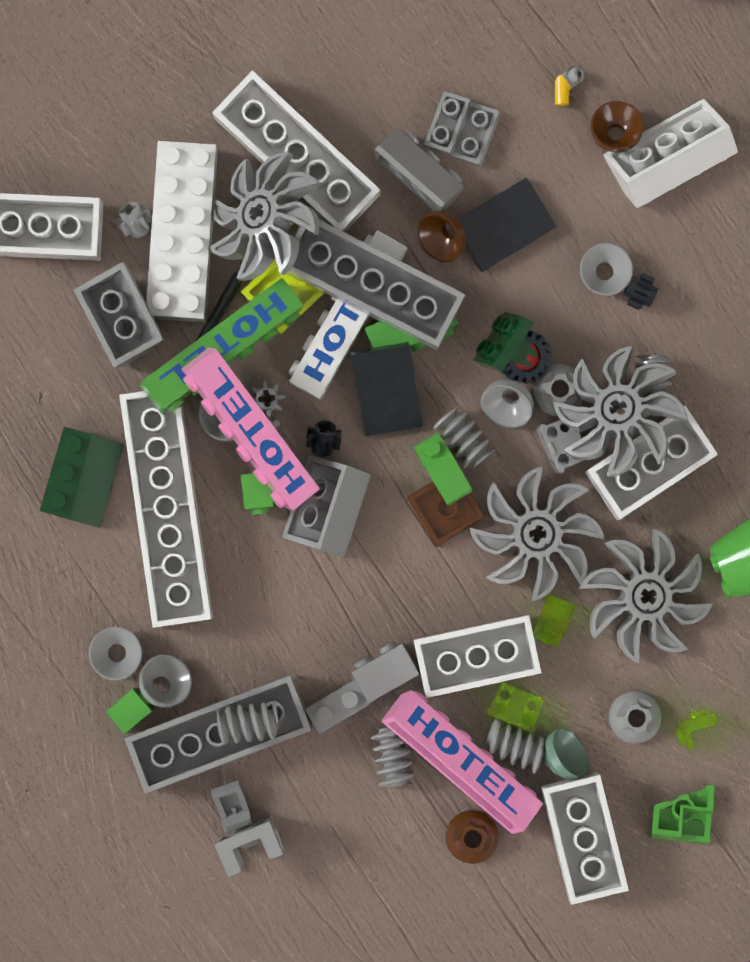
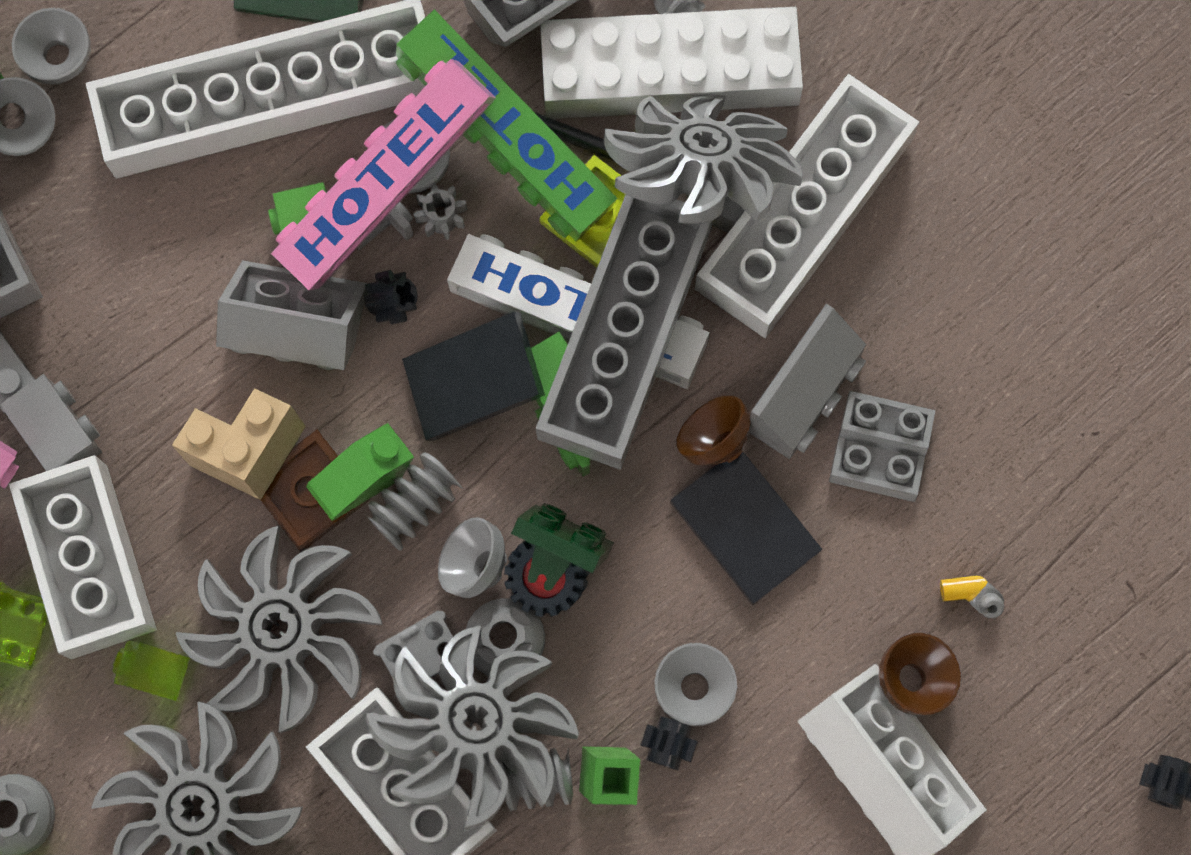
camera: 85 degrees right, 10 degrees down
(420, 542) = (248, 450): none -> tan brick
(657, 331) = (609, 775): none -> bright green brick

